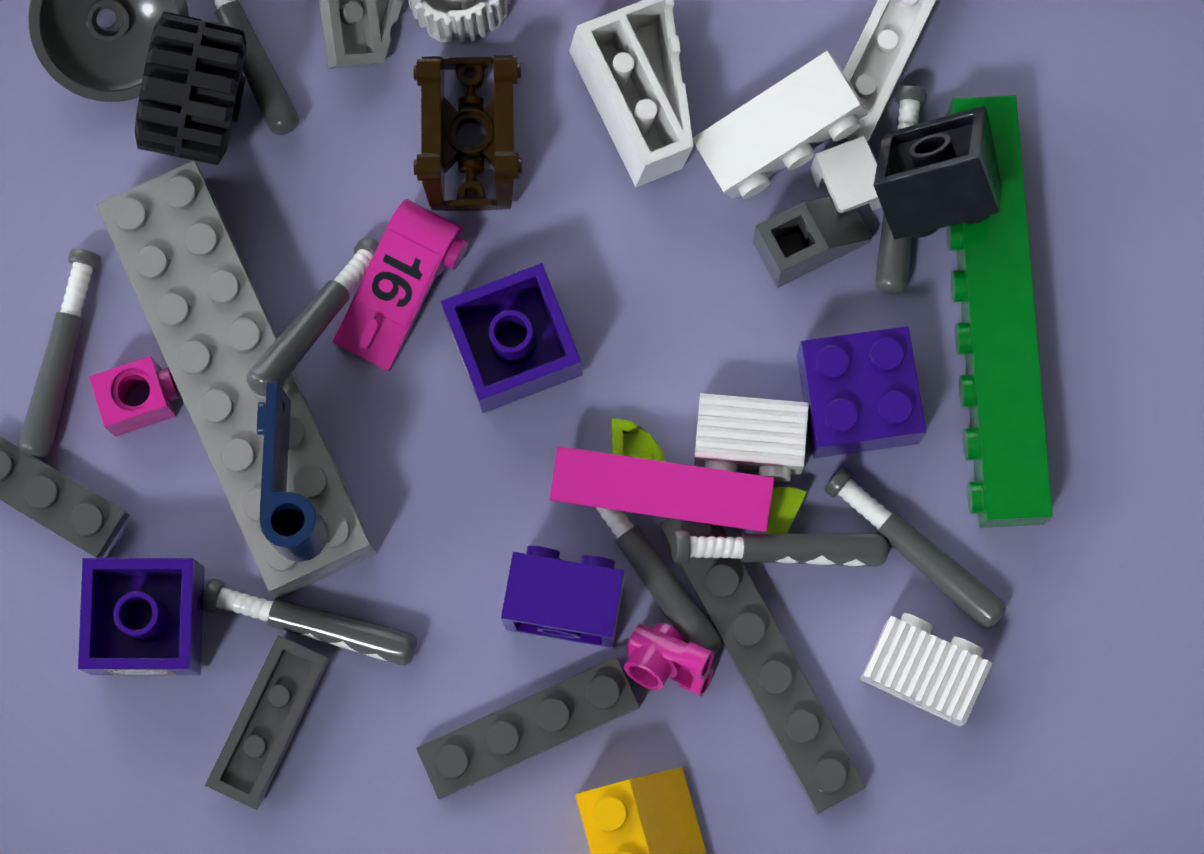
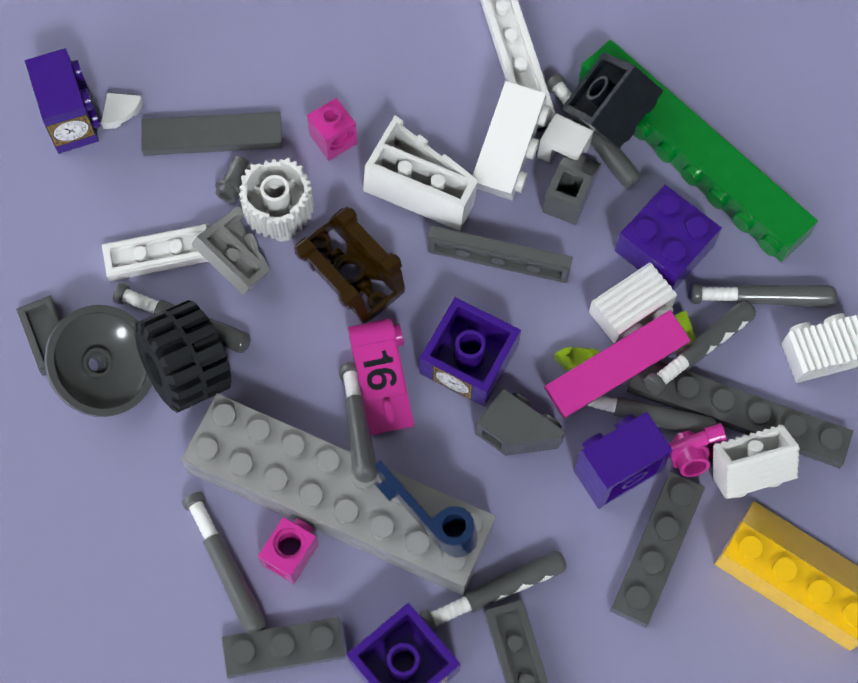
camera: 45 degrees left, 10 degrees down
(489, 466) = (517, 428): none -> dark grey slope
(652, 252) = (499, 254): none -> dark grey tile
(713, 726) = (755, 462): none -> white brick

